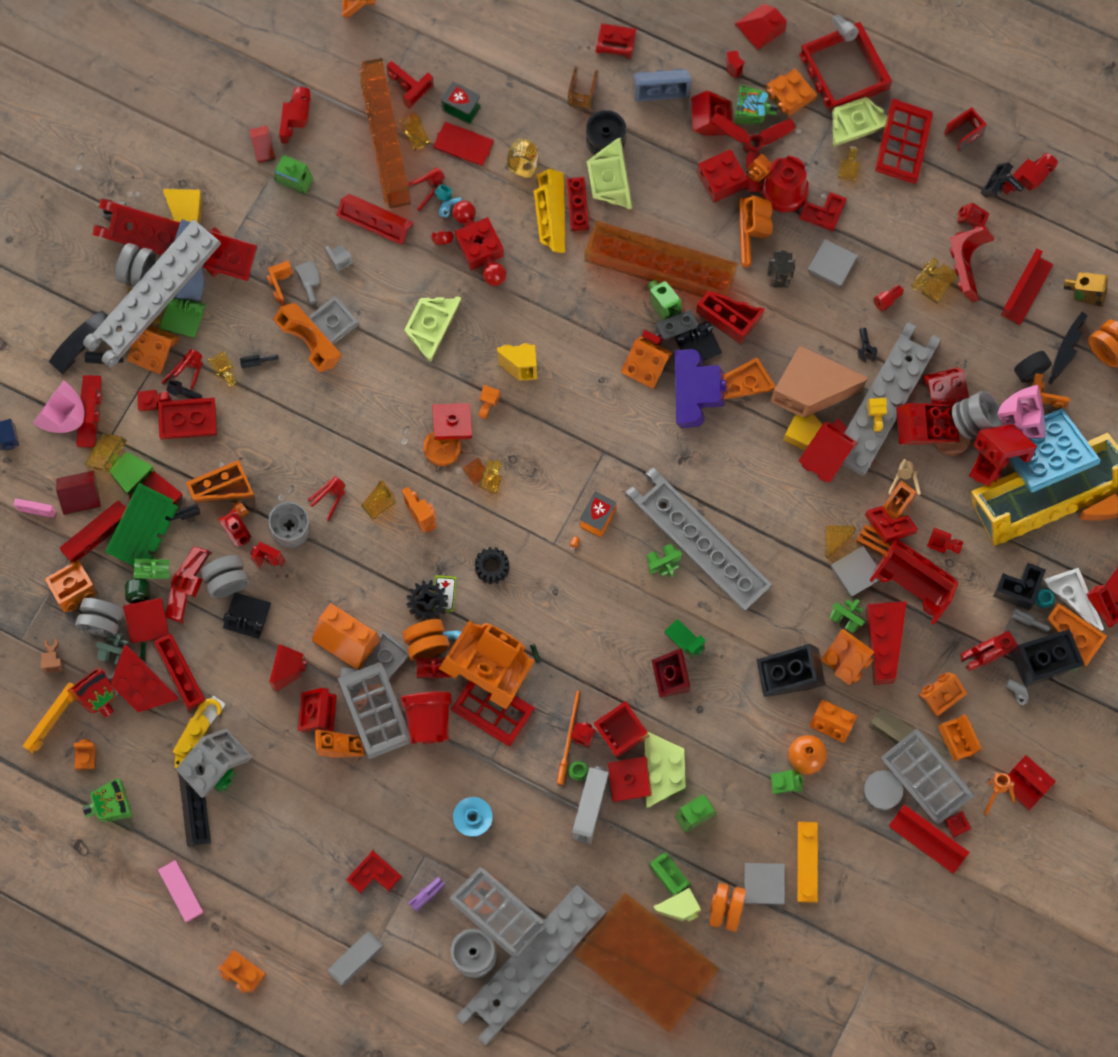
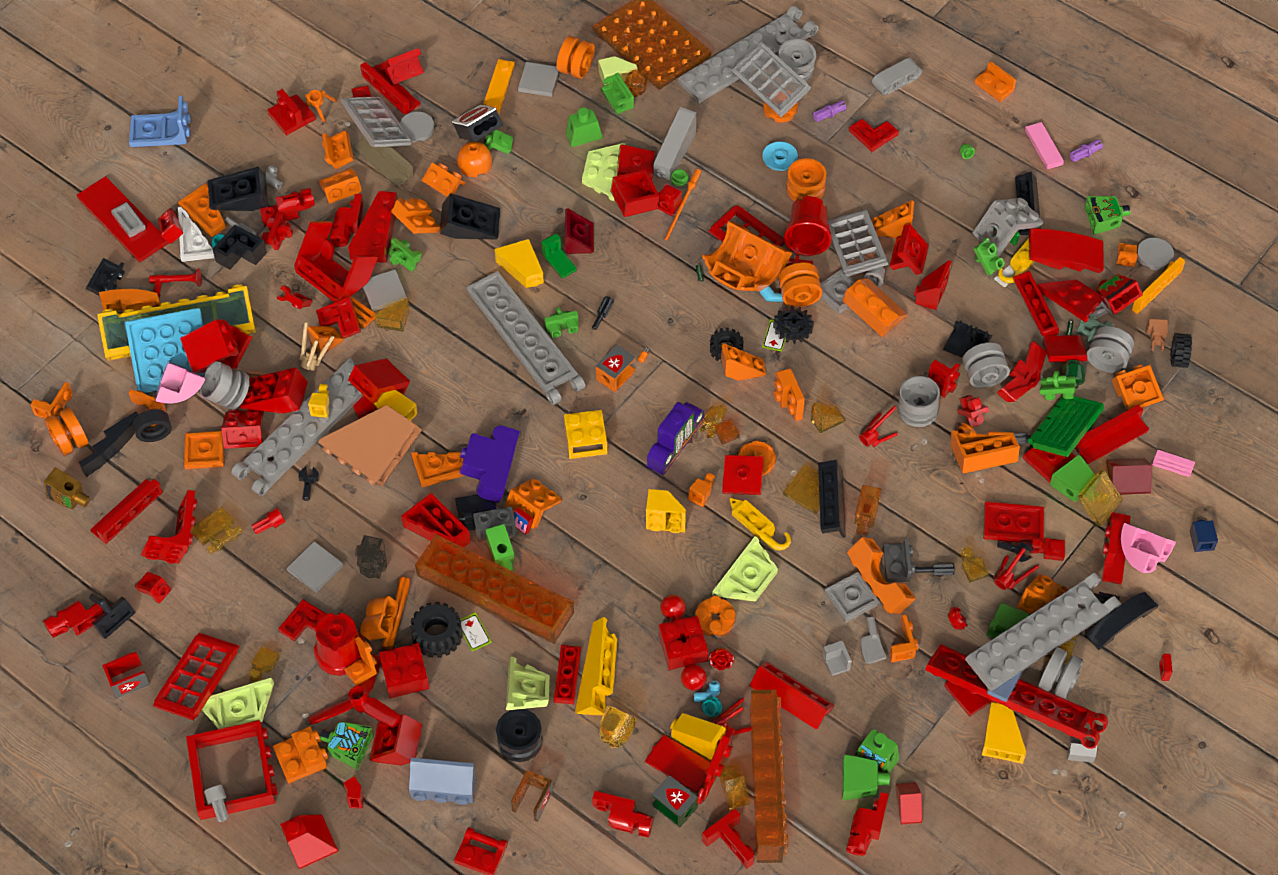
camera: 170 degrees left, 15 degrees down
(27, 633) = (1181, 350): none -> black tyre
(41, 297) = (1165, 667): none -> red tile
(54, 763) = (1155, 253): none -> light grey tile
(133, 889) = (1085, 150): none -> medium lavender axle
(149, 744) = (1066, 249): none -> red slope
(232, 717) = (988, 257): none -> bright green hips
(233, 311) = (956, 618): none -> red plate
(267, 866) = (966, 151): none -> bright green hinge
(294, 361) = (898, 561): none -> dark grey bracket
(305, 149) = (861, 778): none -> bright green torso
(327, 402) = (867, 508): none -> clear orange torso
(363, 409) = (831, 497): none -> black panel
(385, 422) = (805, 489): none -> clear yellow plate
(430, 135) = (716, 765): none -> red plate
(430, 375) = (757, 523): none -> yellow plate
(440, 793) = (806, 178): none -> orange wheel
(450, 160) = (697, 734): none -> yellow slope
(455, 289) = (718, 606): none -> orange plate
(472, 540) = (740, 364): none -> orange slope
(503, 88) = (623, 813): none -> red plate
(522, 448) = (674, 435): none -> dark purple brick
(612, 437) = (585, 430): none -> yellow piece
(626, 586) = (603, 310): none -> black axle
(652, 890) = (636, 82): none -> clear orange head
(671, 229) = (474, 632): none -> white sticker
(703, 202) = (436, 615): none -> black tyre
(722, 625) = (520, 263): none -> yellow slope
(814, 792) = (477, 123): none -> black piece
(920, 645) = (347, 221): none -> red plate
(924, 866) = (402, 66): none -> red bracket
(977, 362) = (203, 450): none -> orange tile
(987, 619) = (278, 232): none -> red hips
(1091, 542) = (195, 277): none -> red piece

